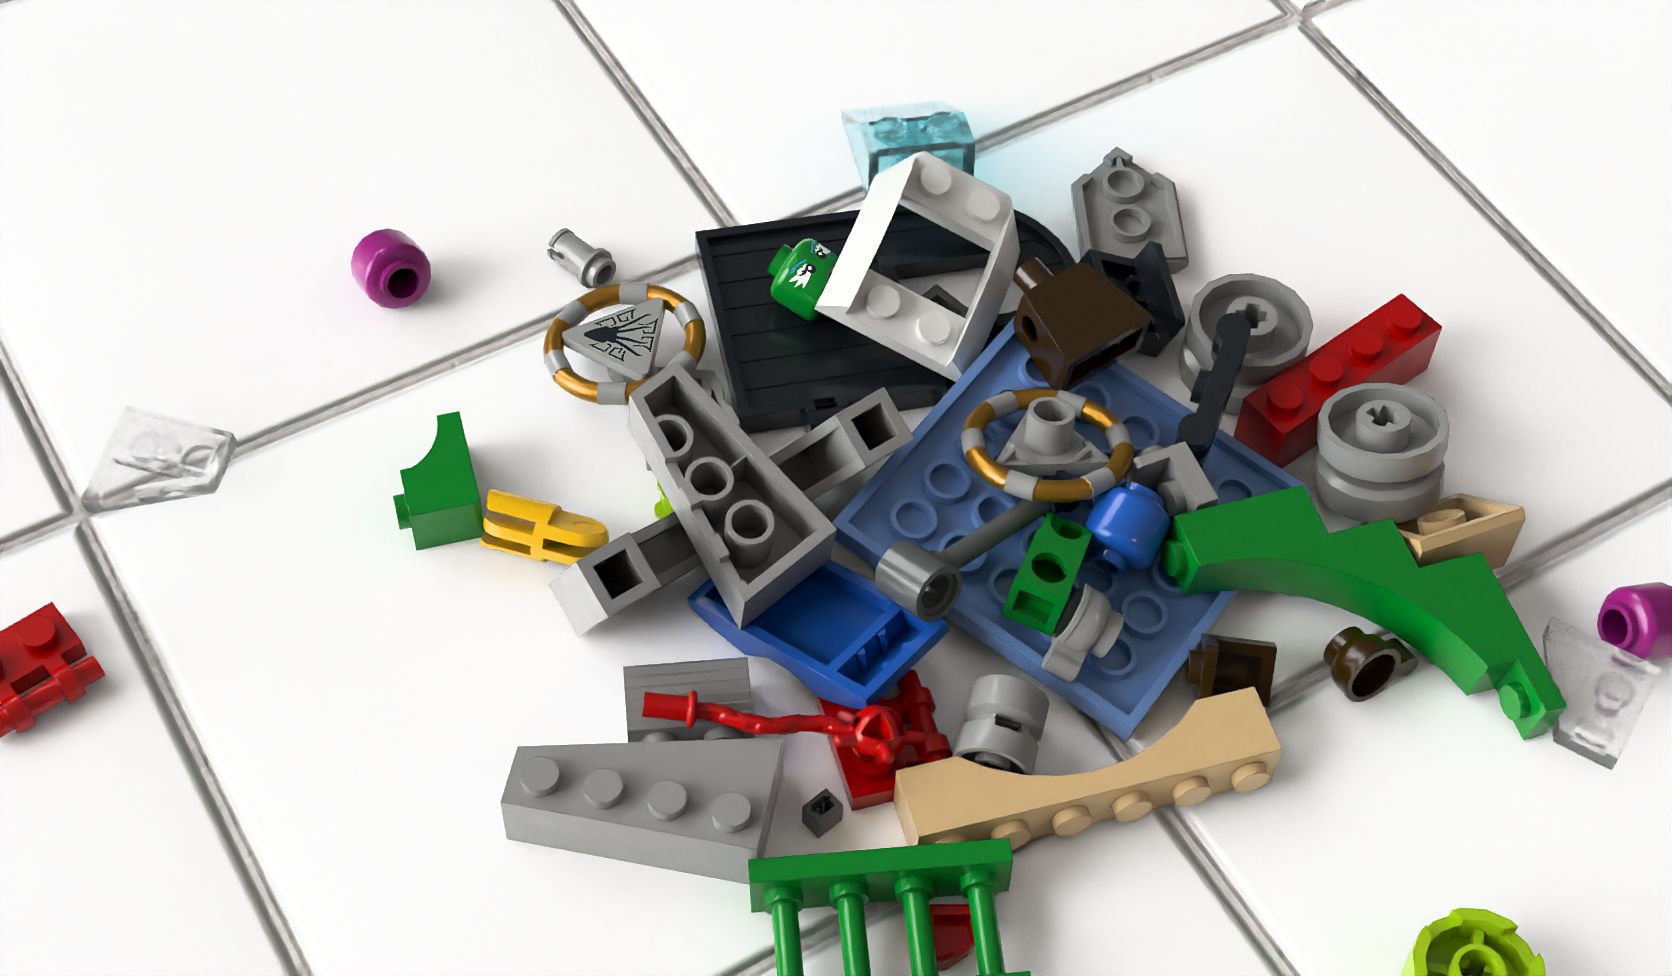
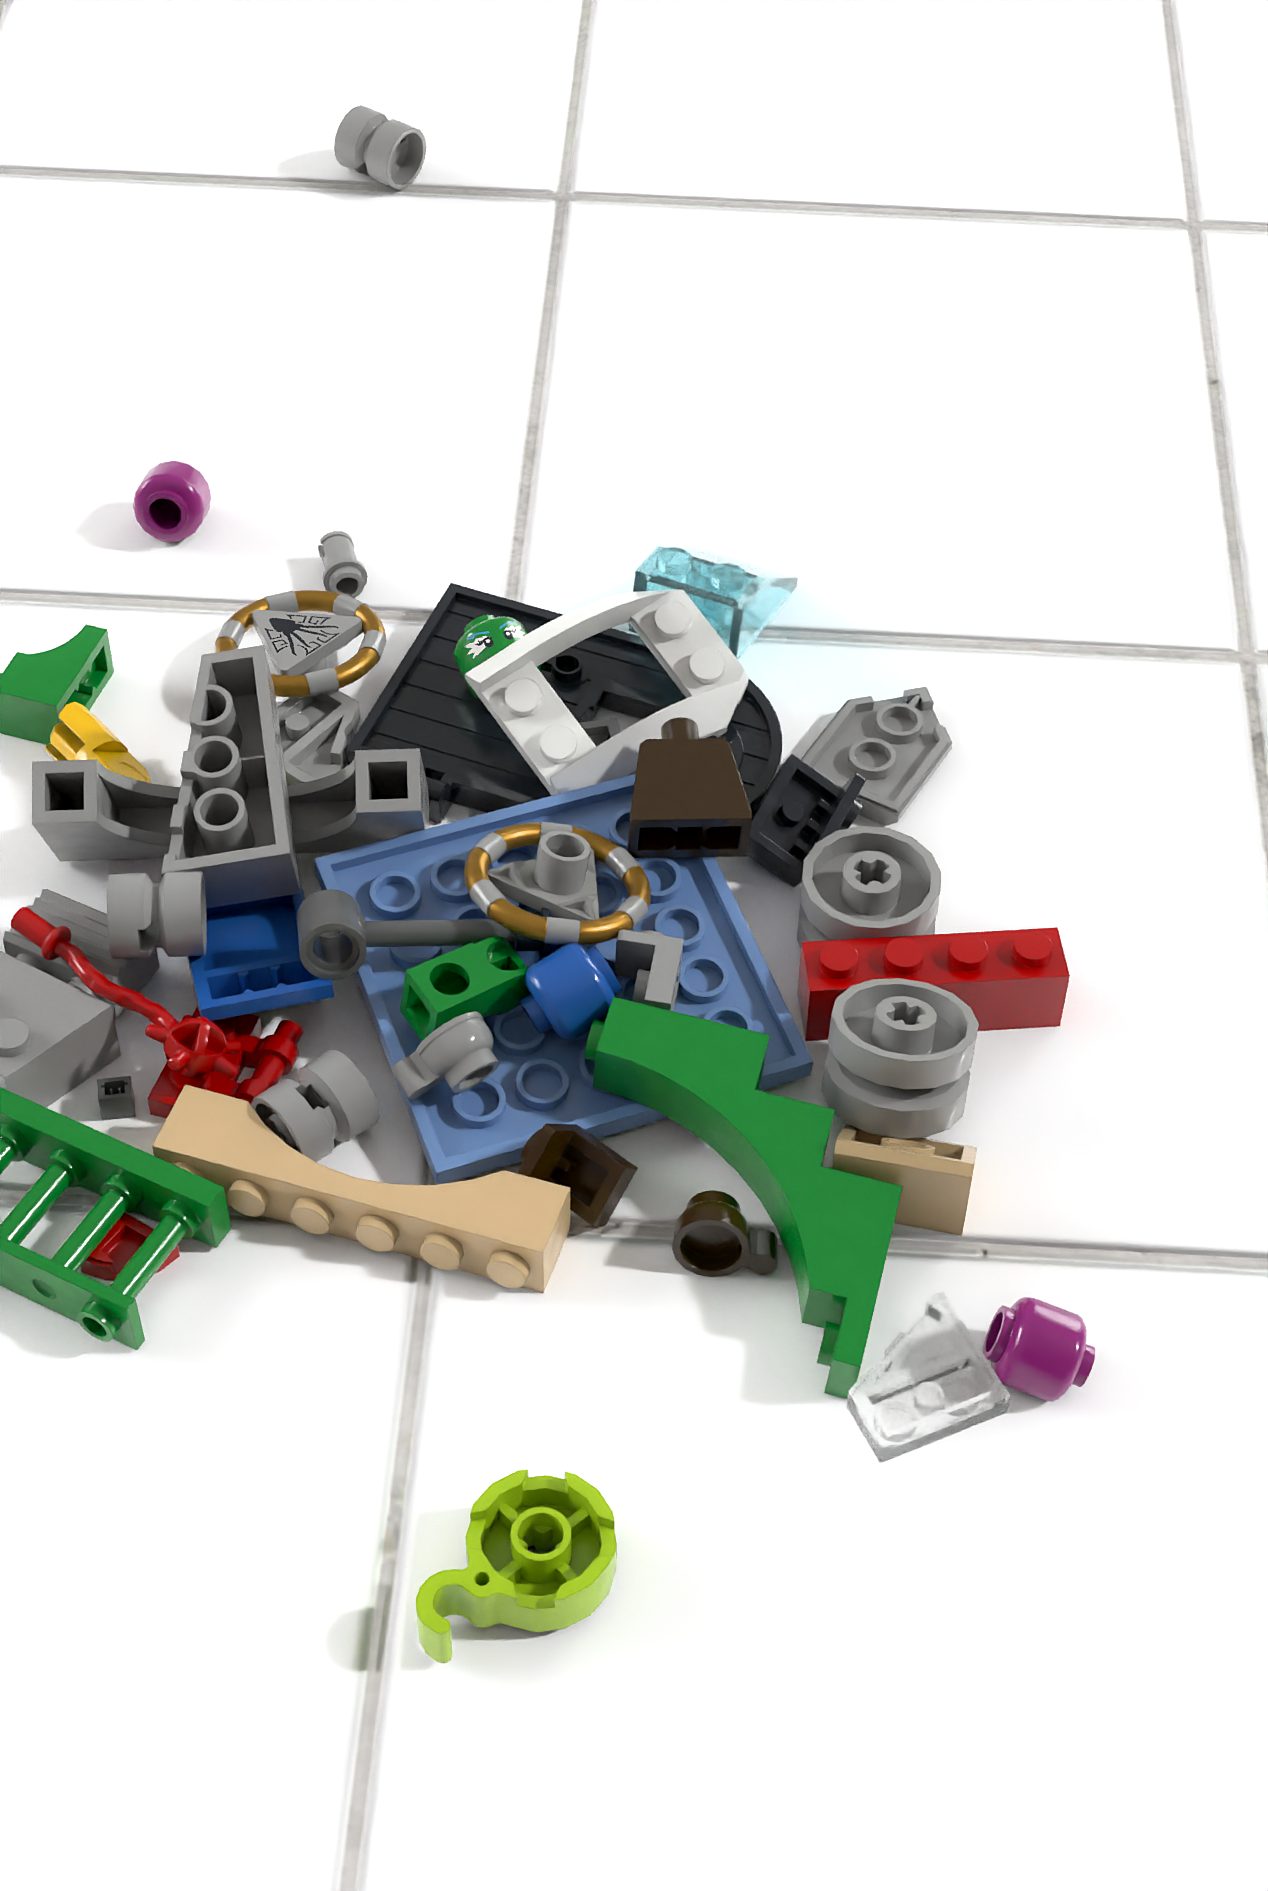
camera: 35 degrees right, 5 degrees down
(772, 634) = (156, 915): none -> light grey wheel
(1215, 387) = (761, 915): black plate -> none

